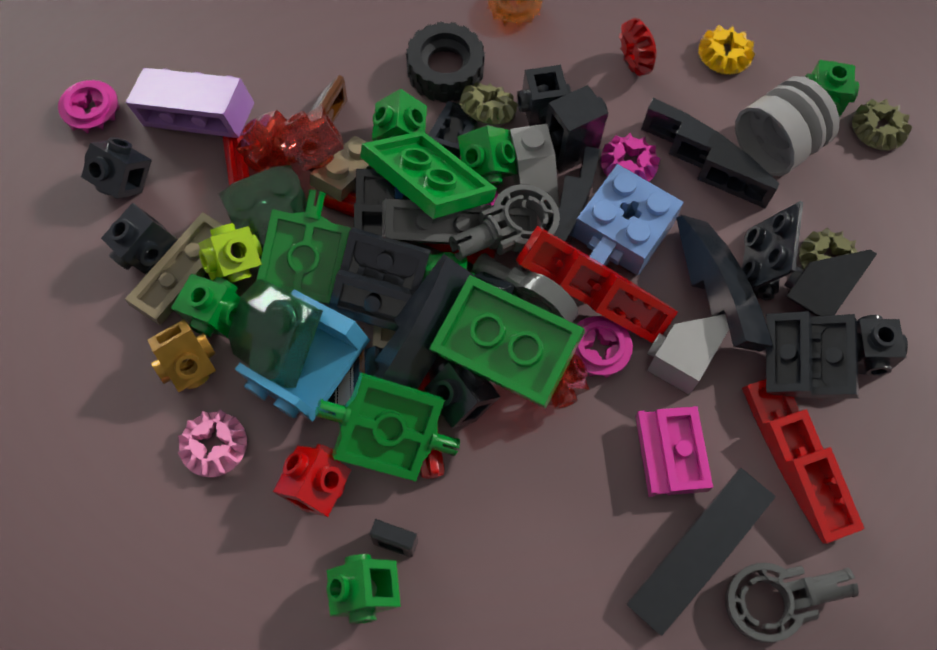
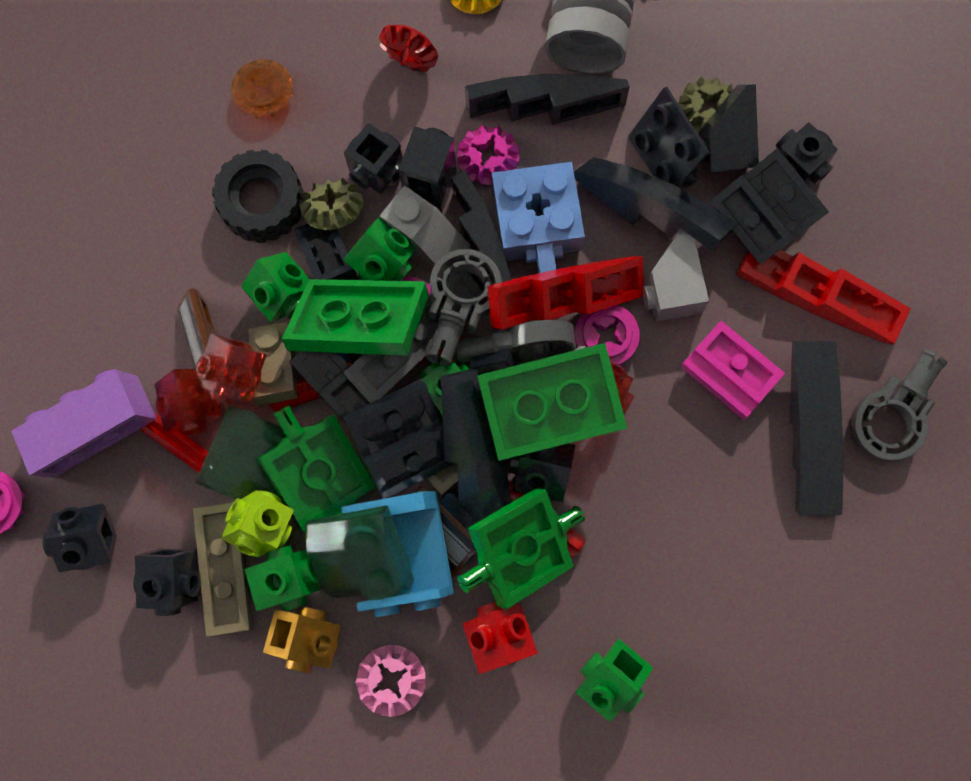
camera: 35 degrees left, 10 degrees up
(394, 538) = (598, 623): black tile -> none

